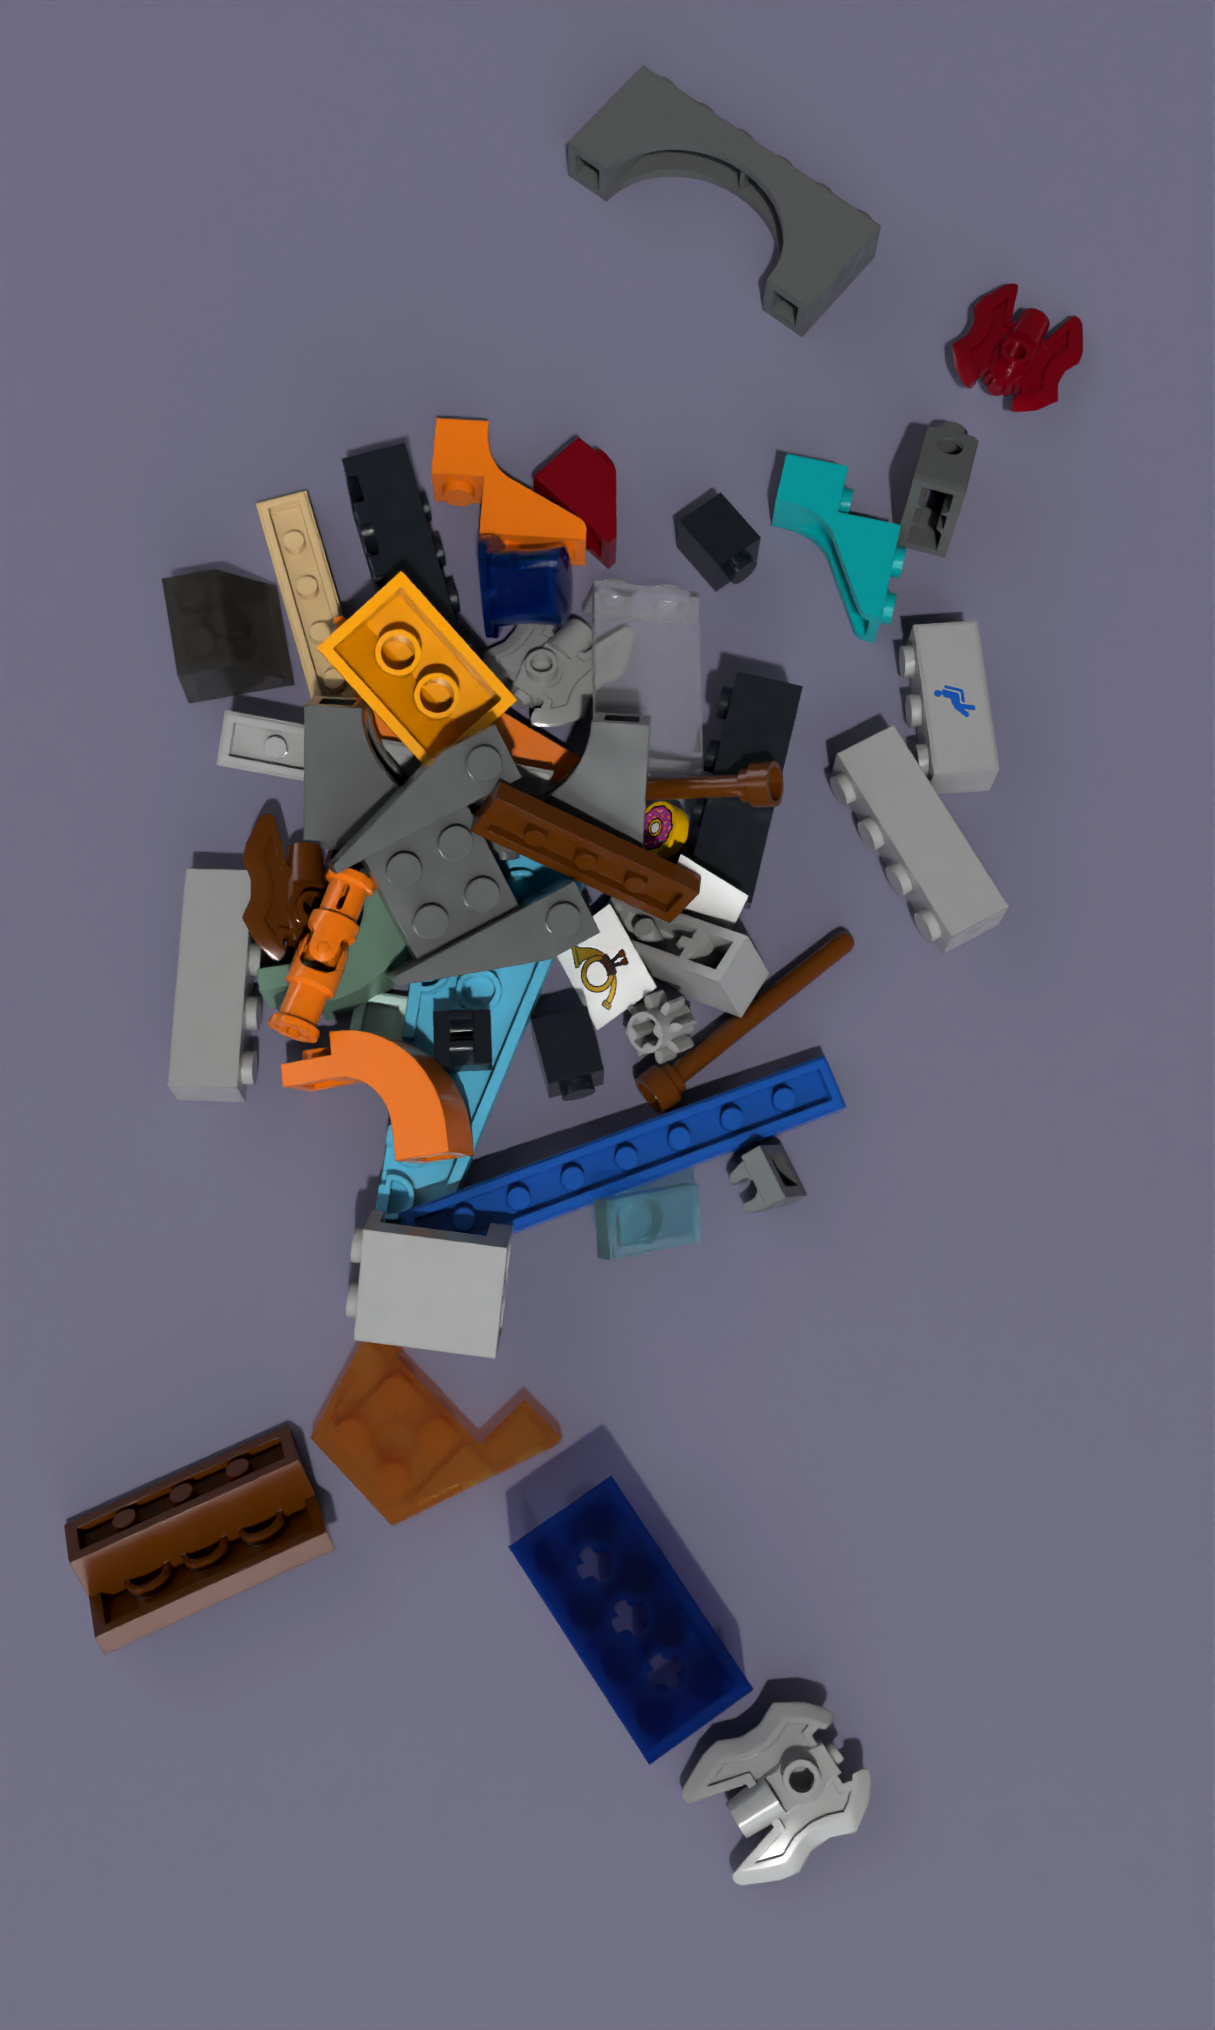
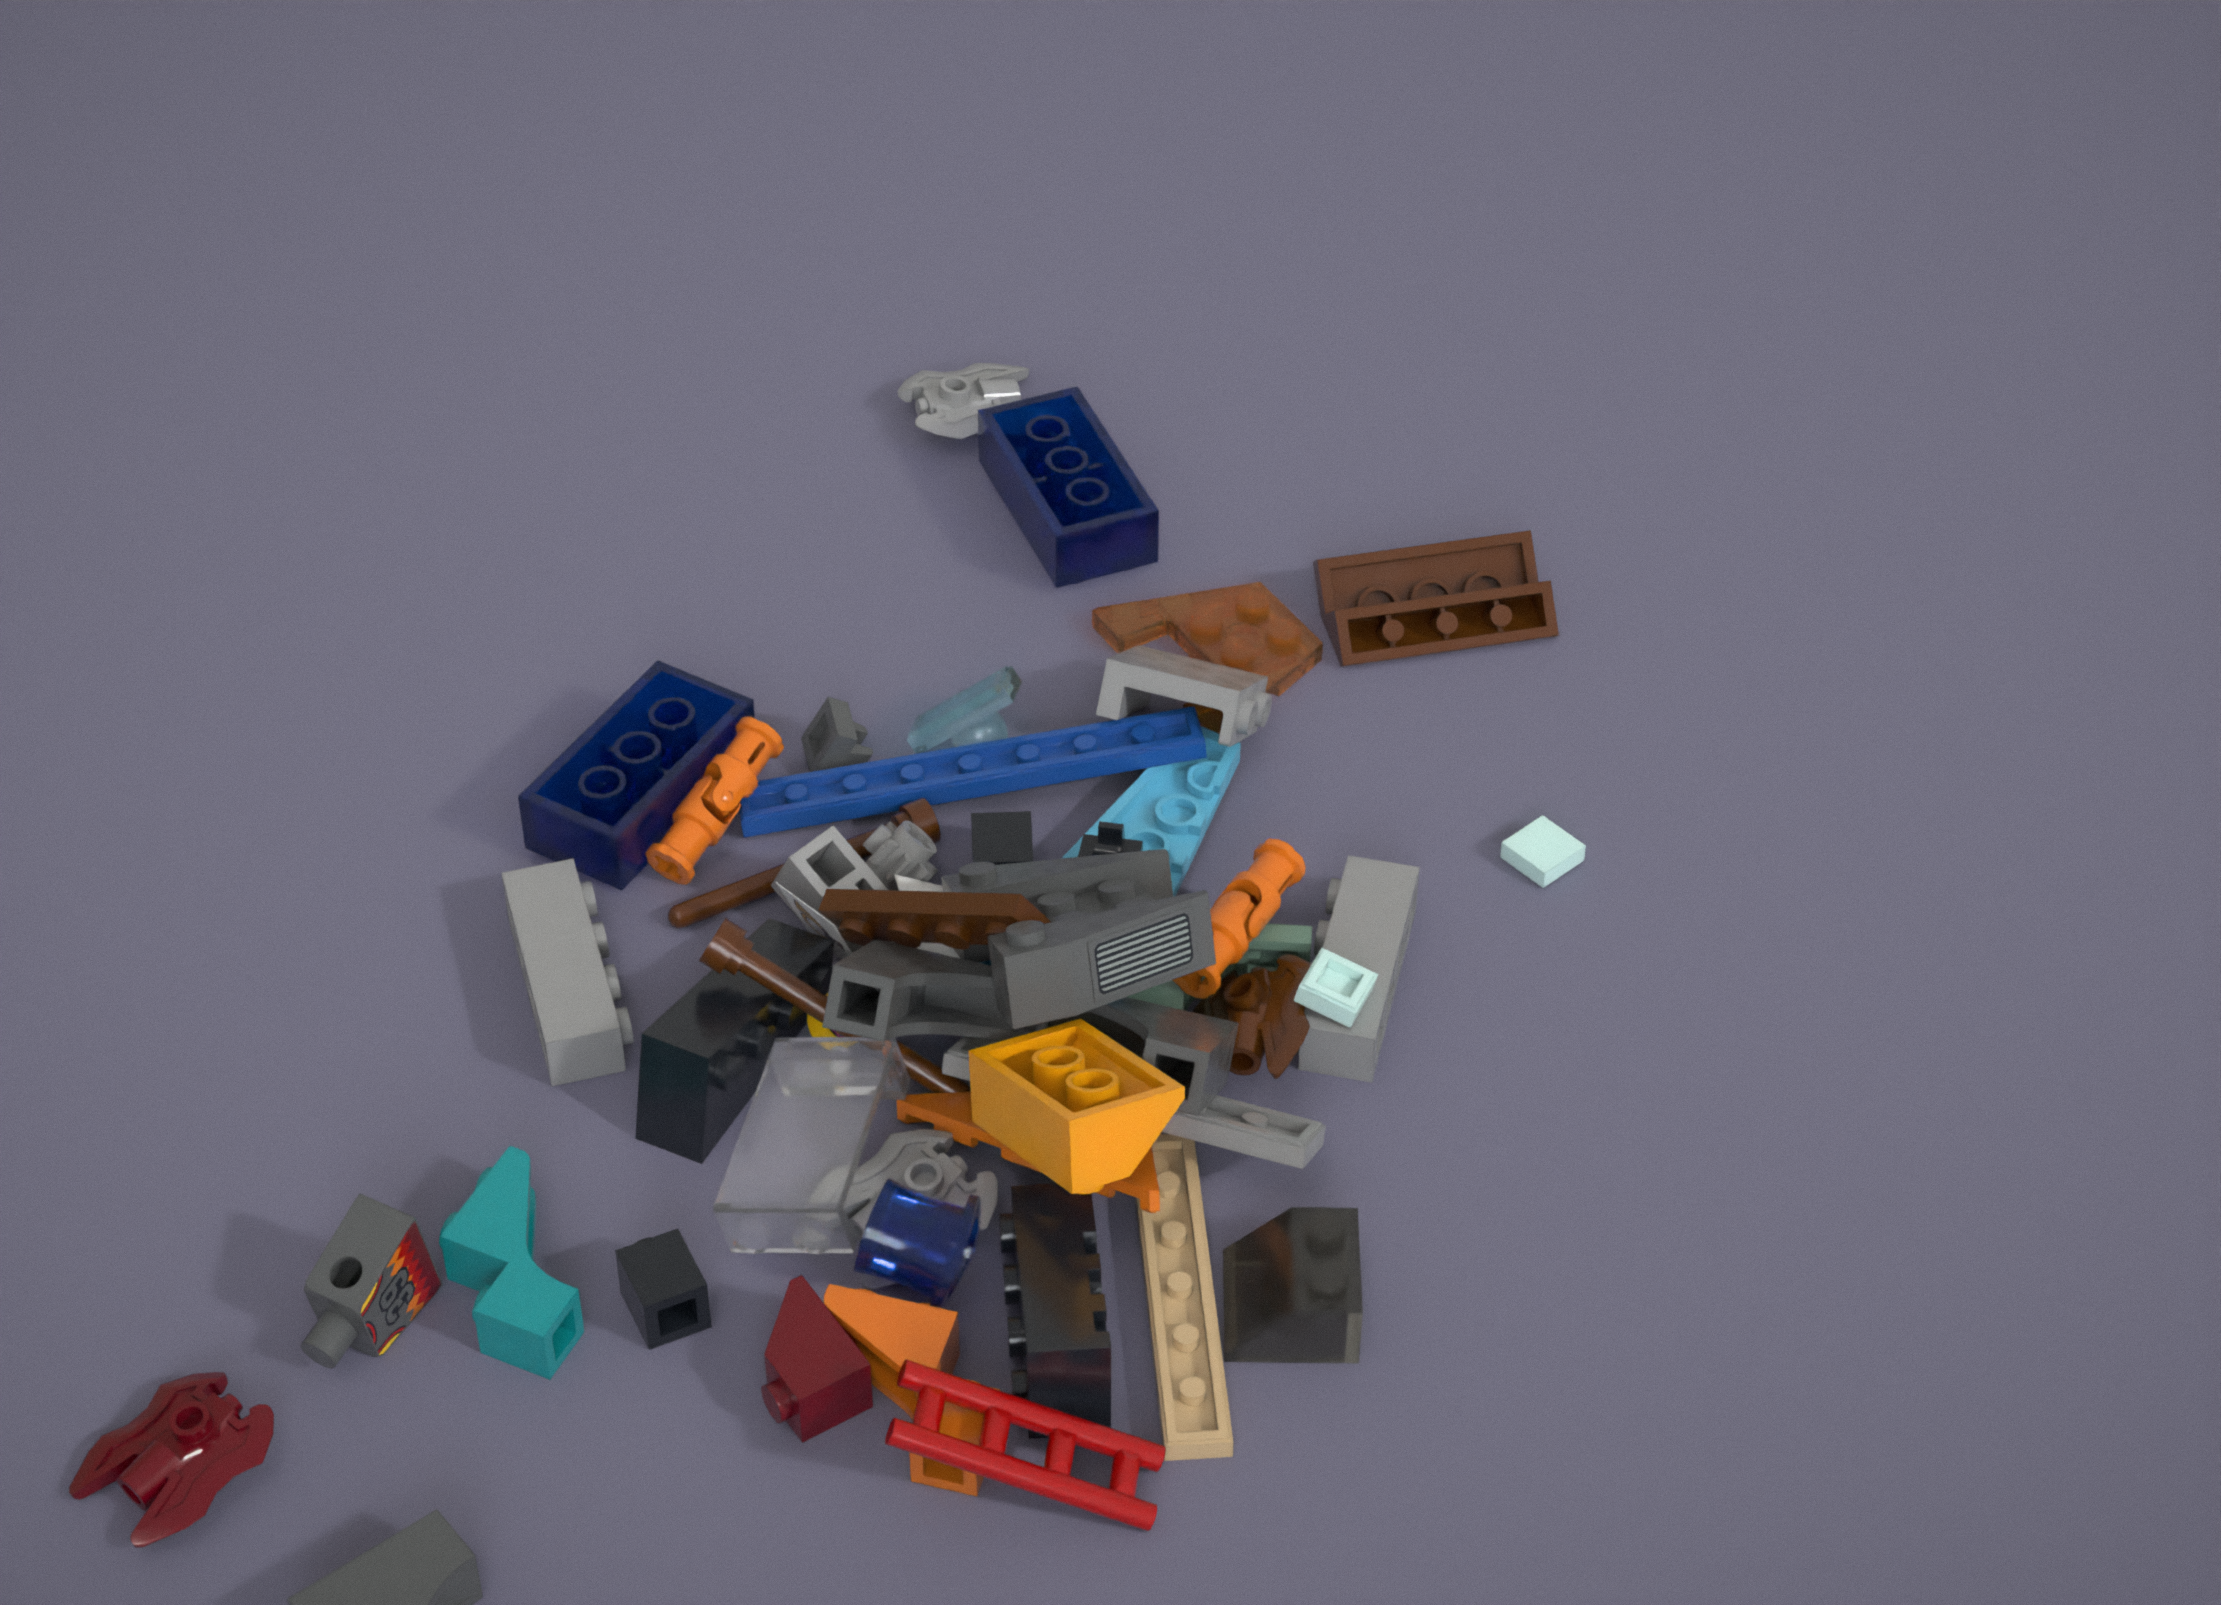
camera: 165 degrees left, 30 degrees down
(60, 1187) = (1542, 851): none -> light aqua tile
(223, 899) = (1336, 987): none -> light aqua tile
(417, 408) = (989, 1456): none -> red bar
(419, 1094) = (1169, 812): orange arch -> none
(852, 1055) = (714, 800): none -> orange piece
(950, 706) = (467, 1081): light grey brick -> none
(968, 1062) = (630, 773): none -> clear blue brick

